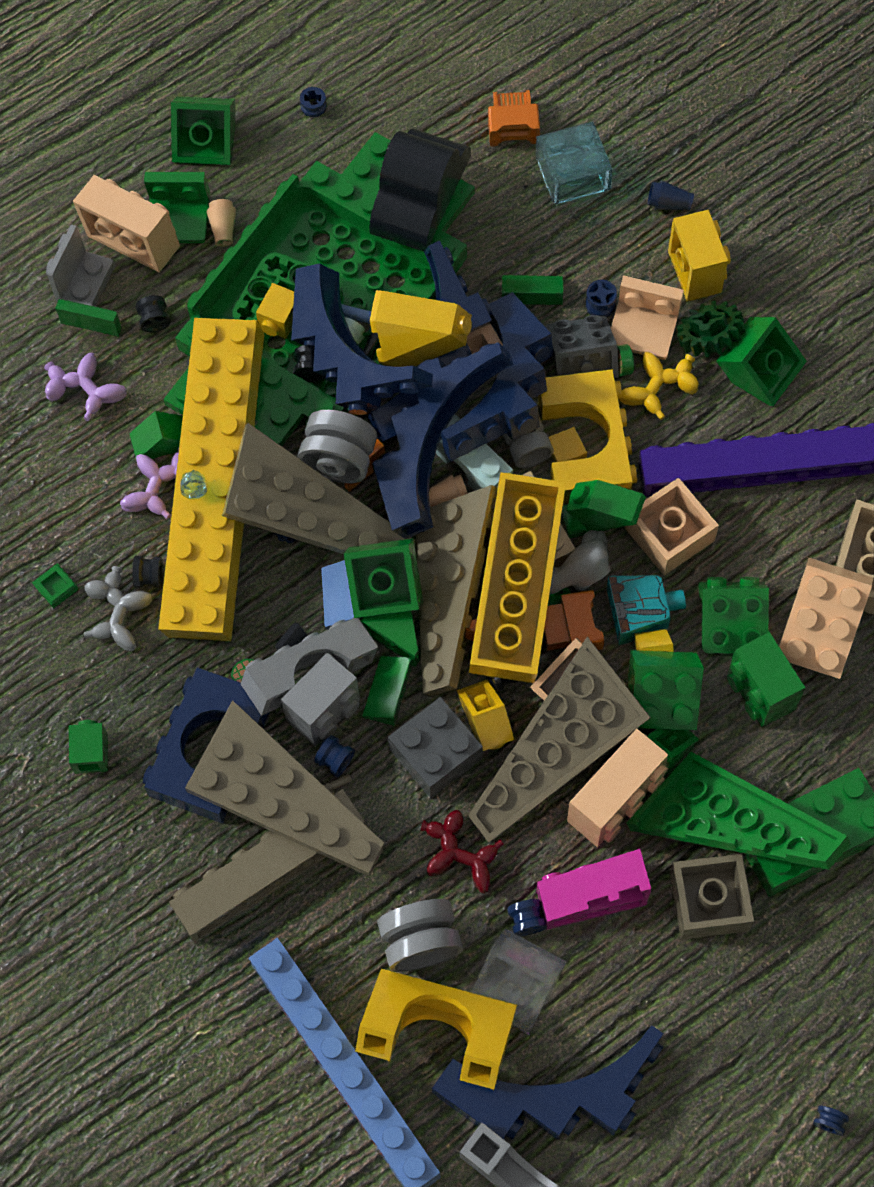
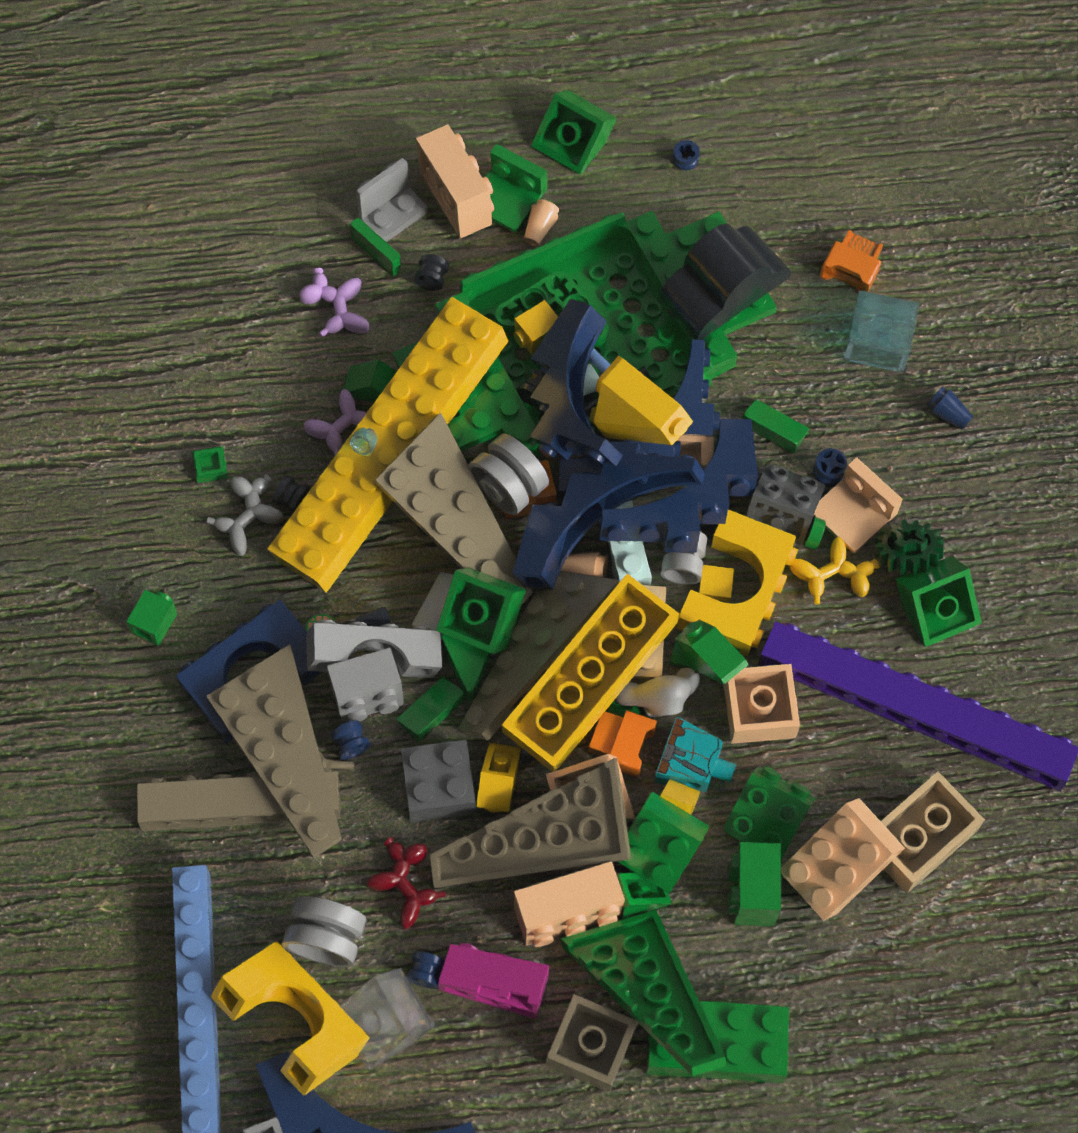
camera: 25 degrees right, 0 degrees up
(698, 255) = (939, 475): yellow brick -> none

